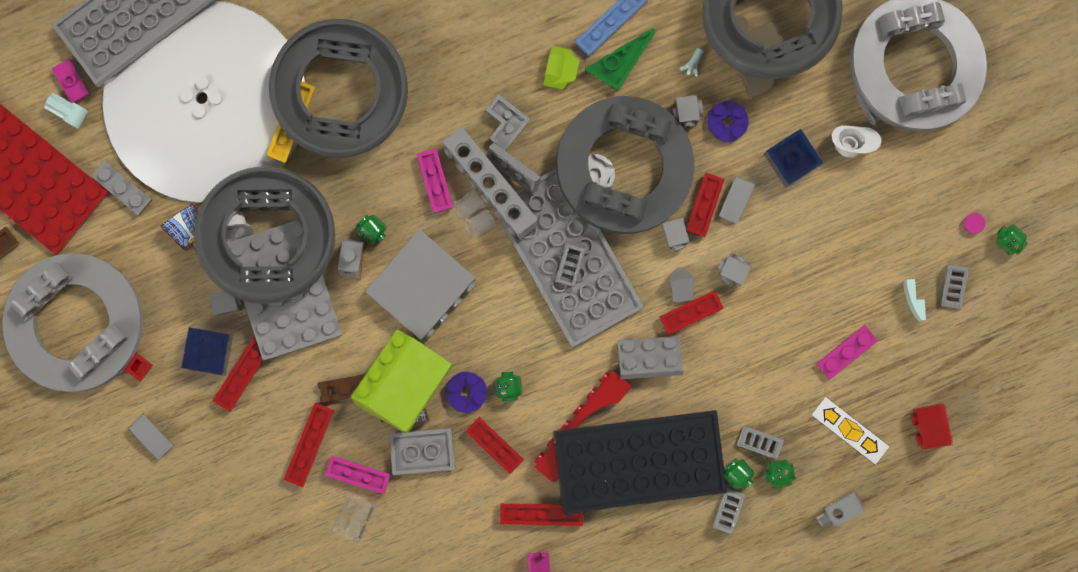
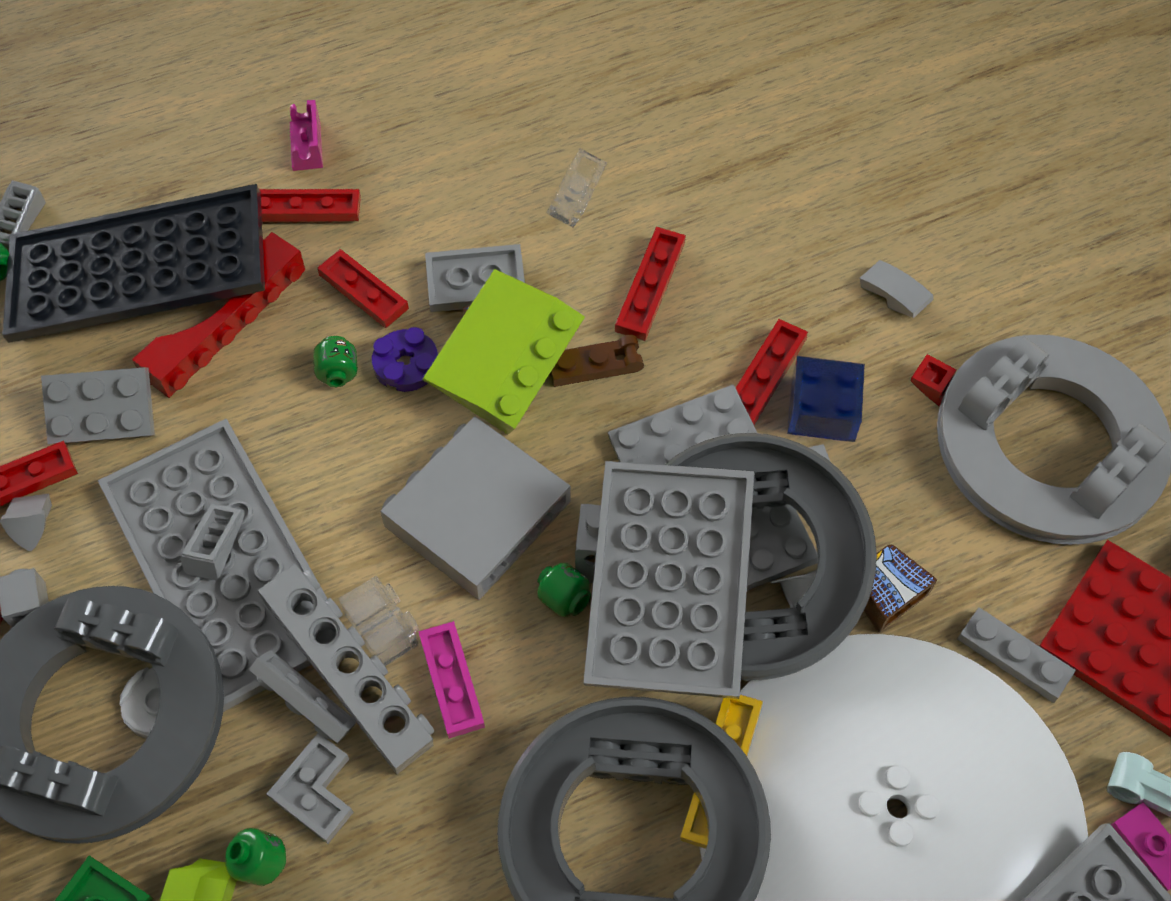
camera: 175 degrees right, 25 degrees down
(309, 216) = (670, 580): none -> light grey plate
(357, 474) = (573, 247): dark pink plate -> none
(532, 85) = (255, 857): none -> green head

